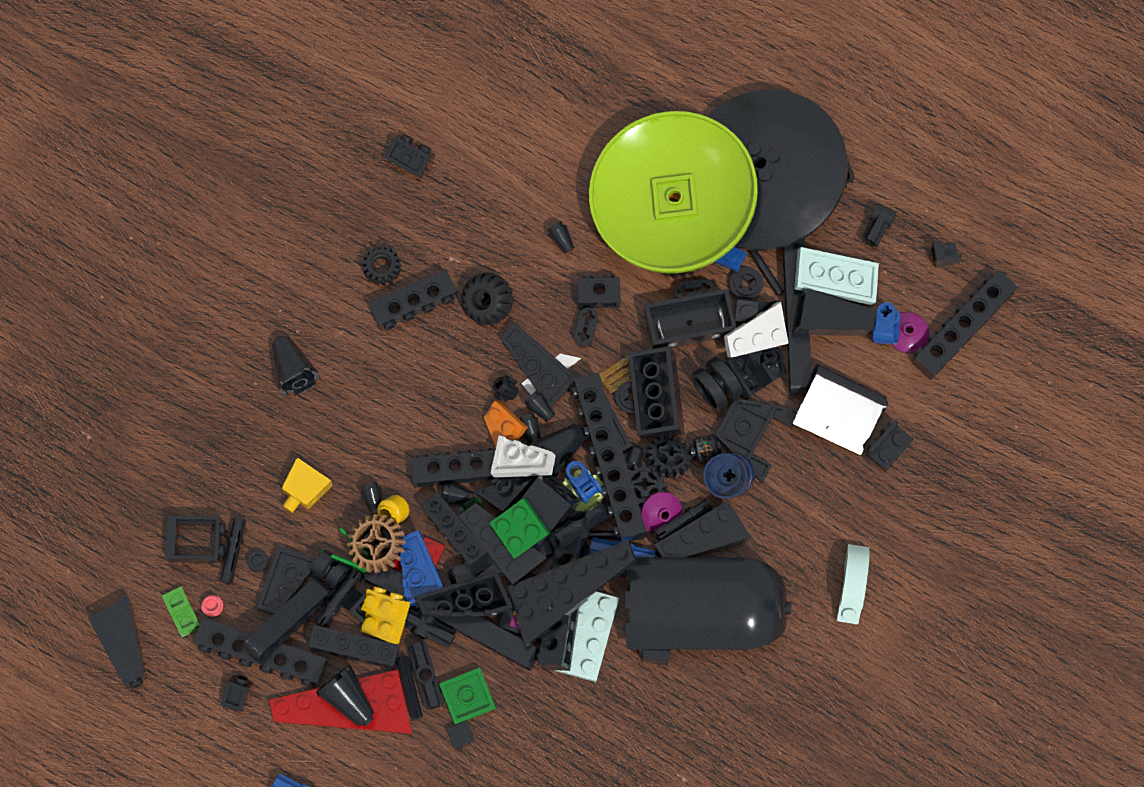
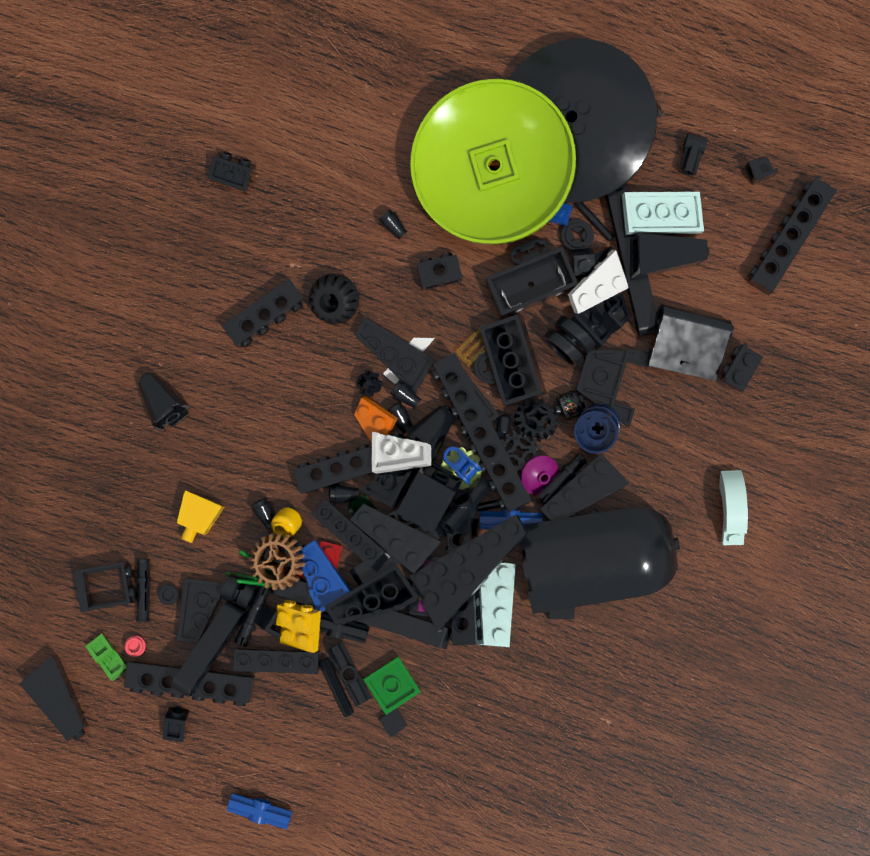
camera: 10 degrees left, 10 degrees up
(347, 697) = (279, 712): black cone -> none
(381, 277) = (226, 272): black tyre -> none
(382, 691) = (292, 712): red wing -> none
(519, 528) = (410, 521): green plate -> none
(590, 328) = (428, 307): black beam -> none
(886, 328) = (718, 254): blue piece -> none
(912, 342) = (734, 262): magenta dish -> none

